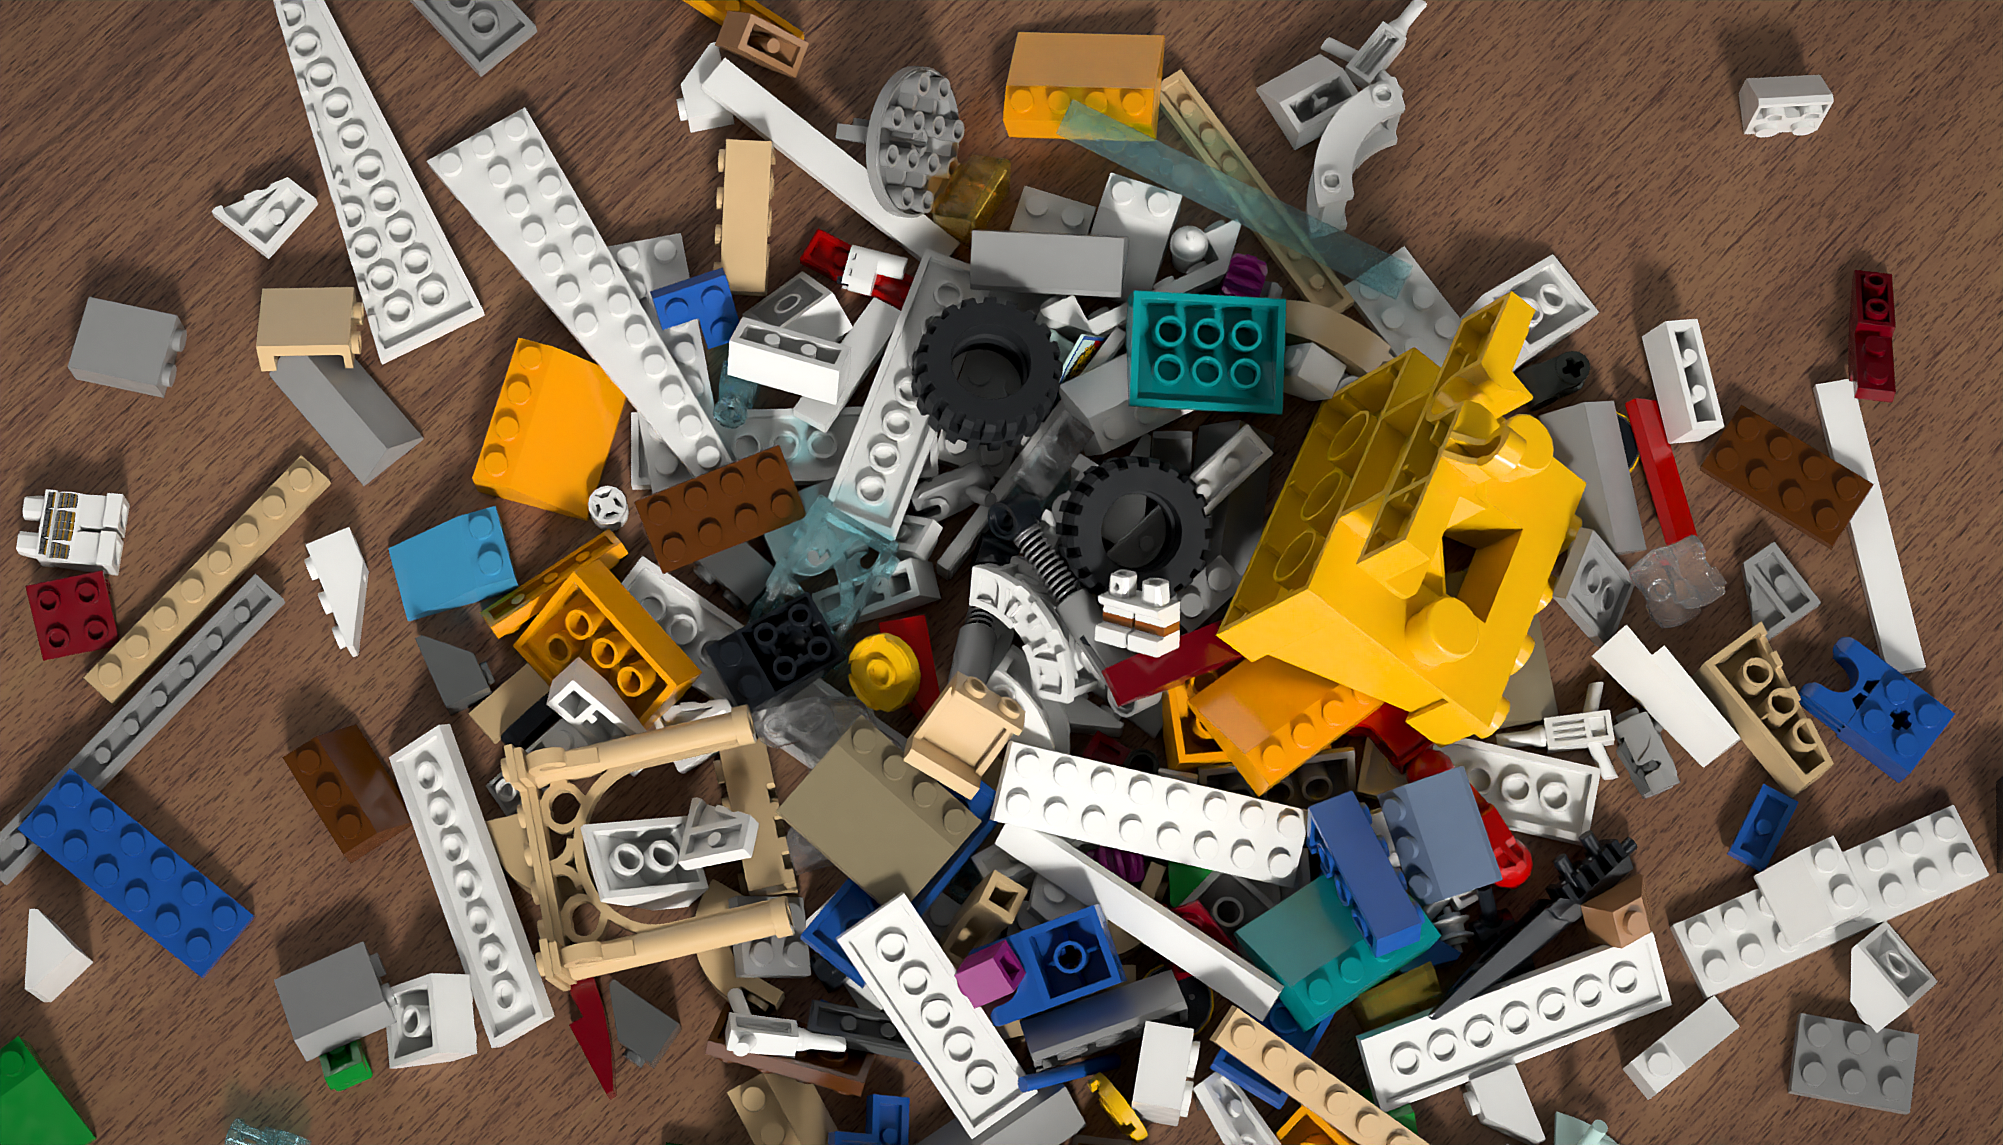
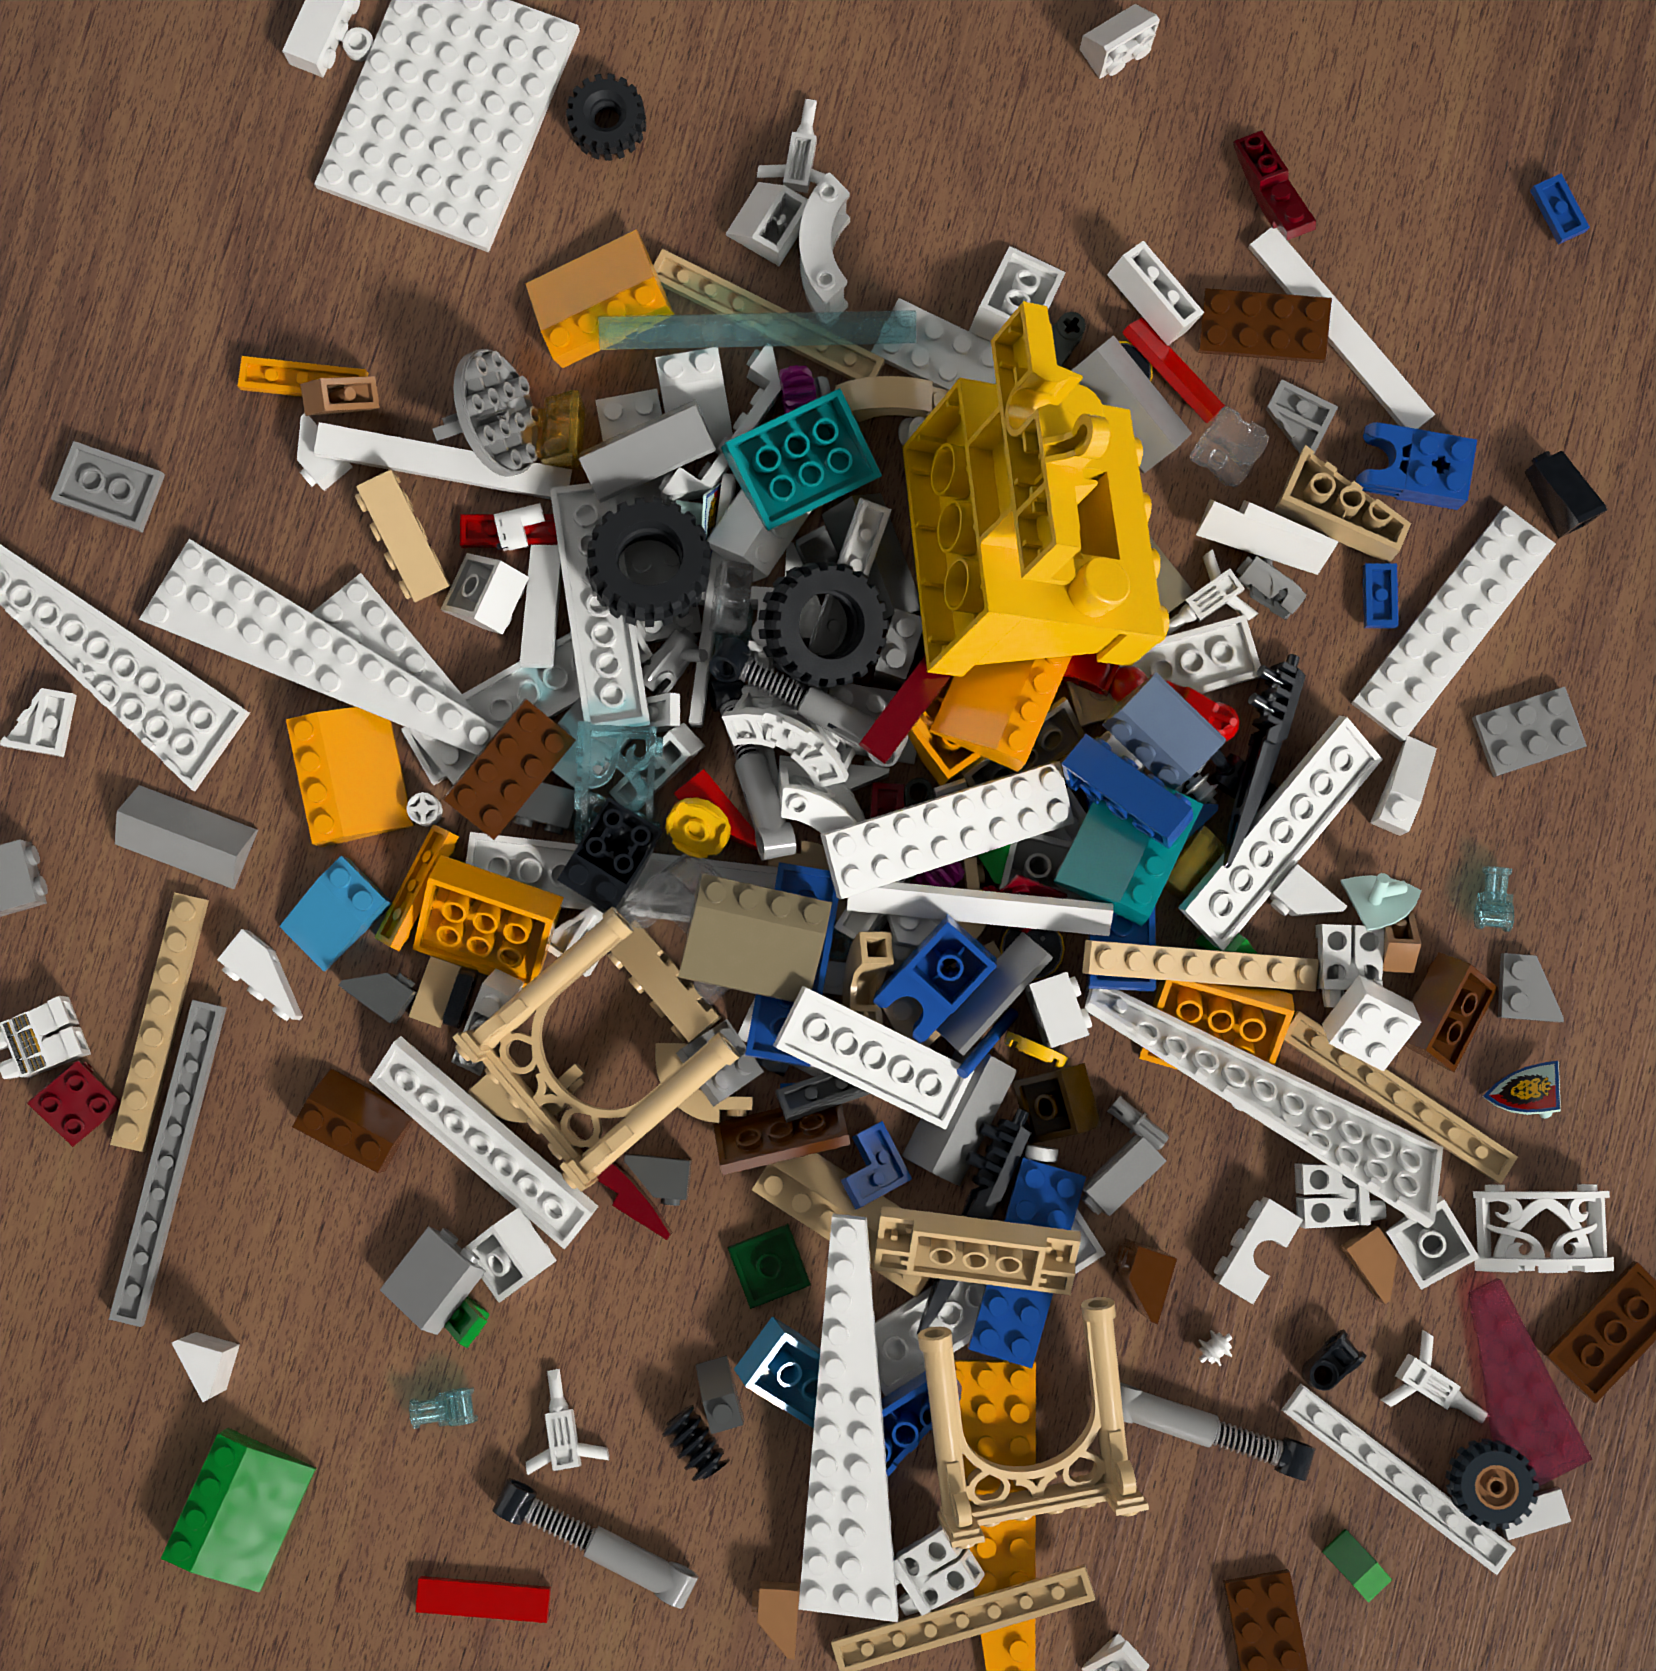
camera: 25 degrees left, 10 degrees up
(136, 873) = (232, 1266): blue plate -> none
(308, 324) = (123, 793): tan panel -> none
(591, 705) = (497, 965): white slope -> none
(638, 863) = (601, 1060): white slope -> none
(700, 298) = (406, 616): blue plate -> none
(716, 836) = (642, 1013): white wing -> none
(735, 394) = (471, 671): clear light blue connector -> none
(771, 1035) = (762, 1136): white piece -> none
(789, 360) = (497, 630): white brick -> none
(963, 734) = (785, 847): tan panel -> none
(989, 974) = (899, 1011): magenta brick -> none
(1139, 619) = (865, 692): white hips -> none
(1188, 247) = (742, 383): white piece -> none
(1311, 372) = (885, 431): white slope -> none
(1593, 587) = (1173, 484): light grey plate -> none
(1619, 914) = (1315, 715): medium nougat slope -> none
(1812, 891) = (1442, 625): white slope -> none
(1886, 977) = (1524, 658): white slope -> none

